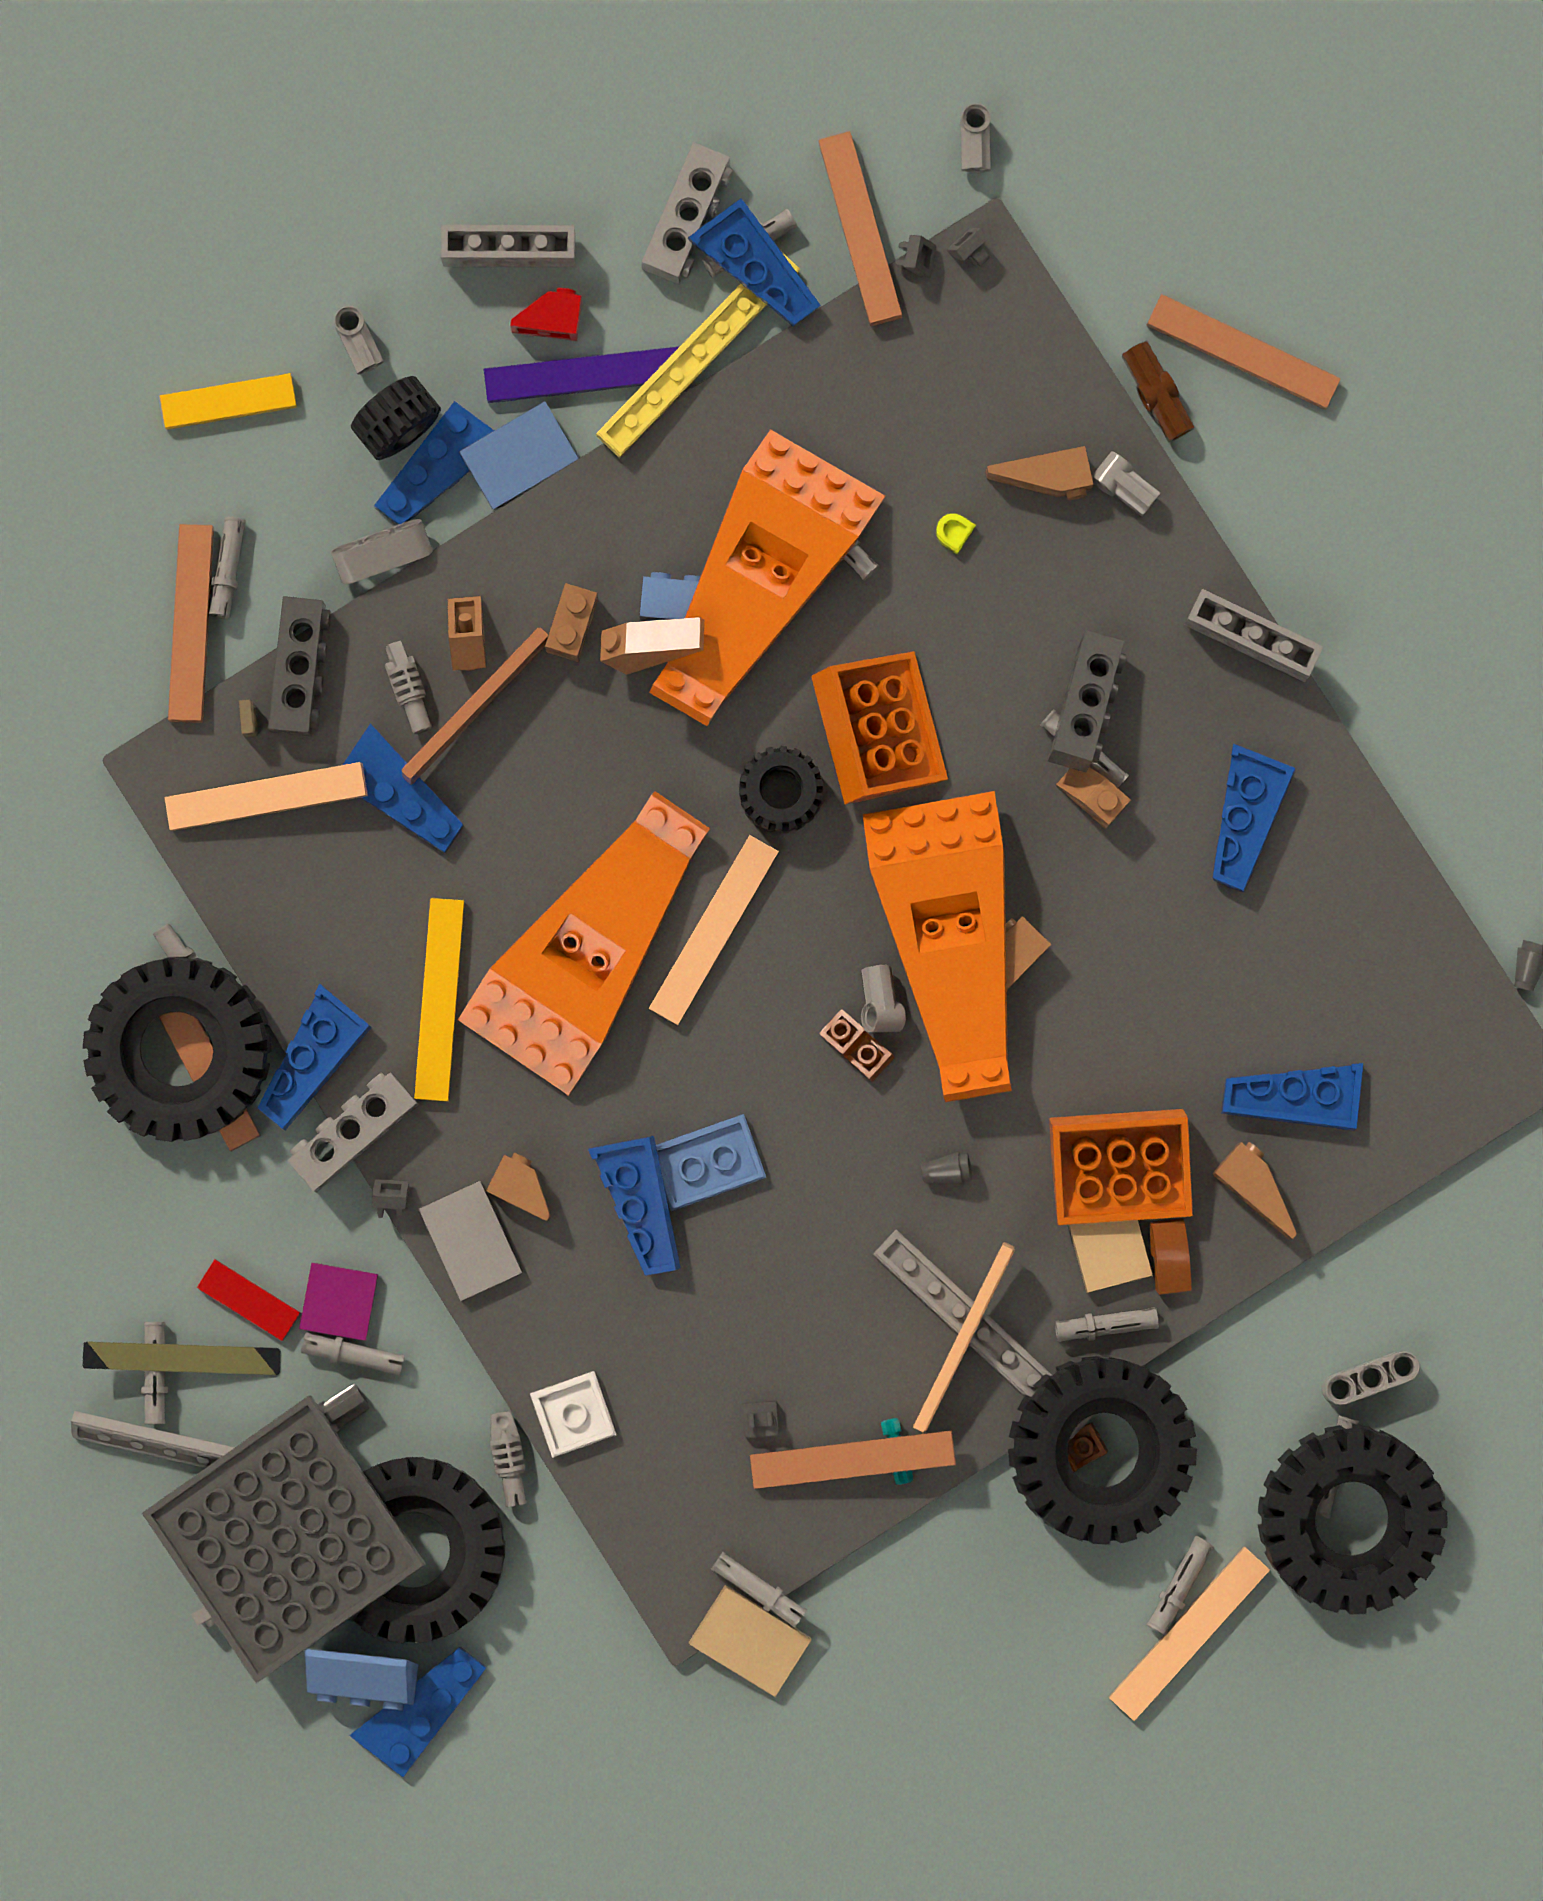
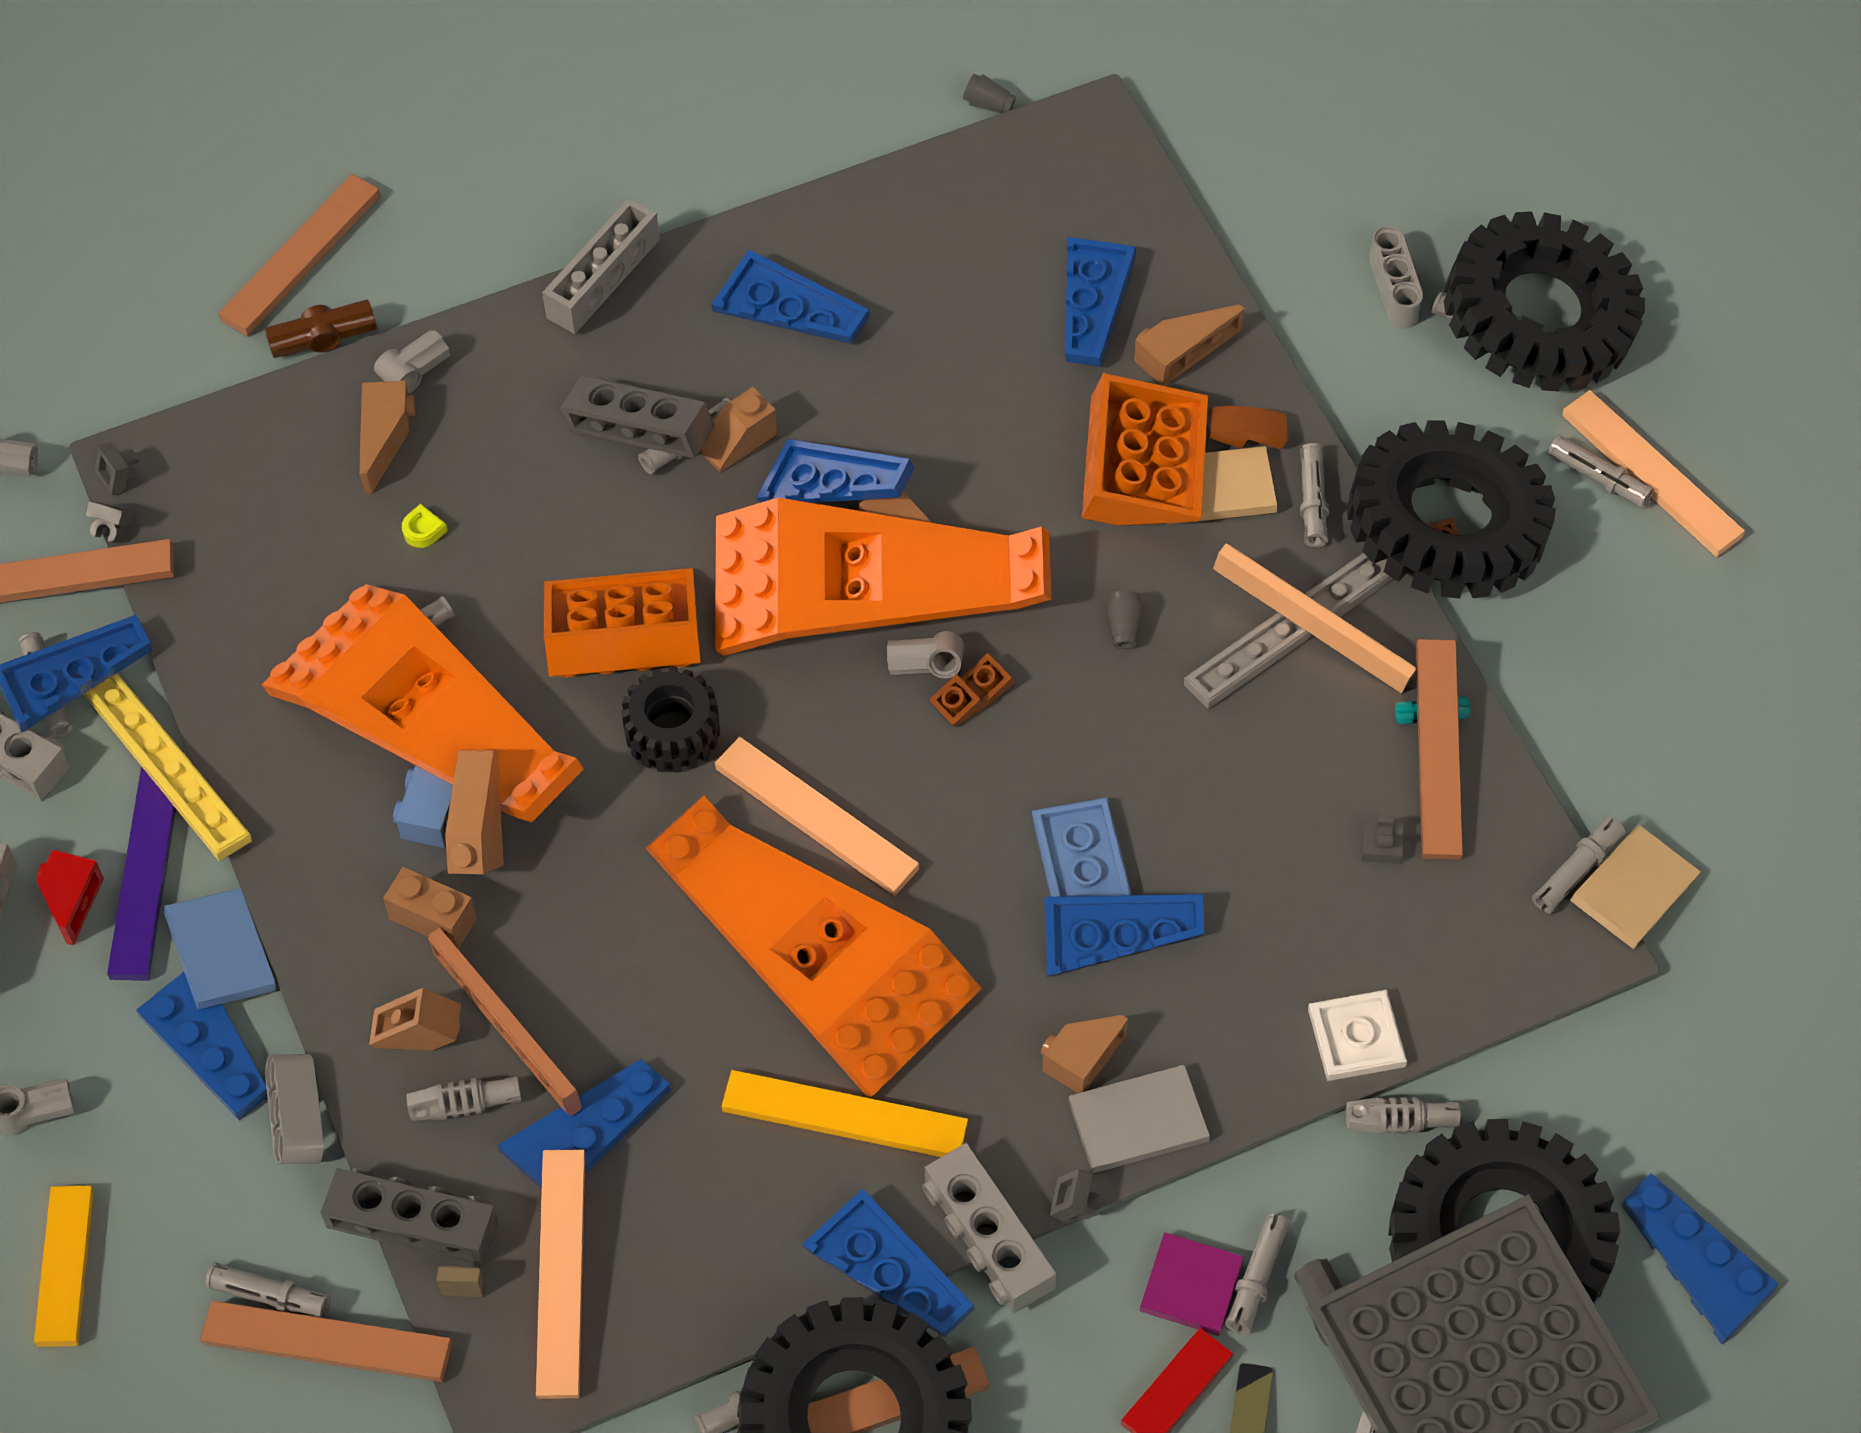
camera: 75 degrees left, 25 degrees down
(360, 1678) = (1659, 1303): medium blue slope -> none
(395, 417) = (138, 1061): black tyre -> none
(1052, 882) = (834, 474): none -> blue wing

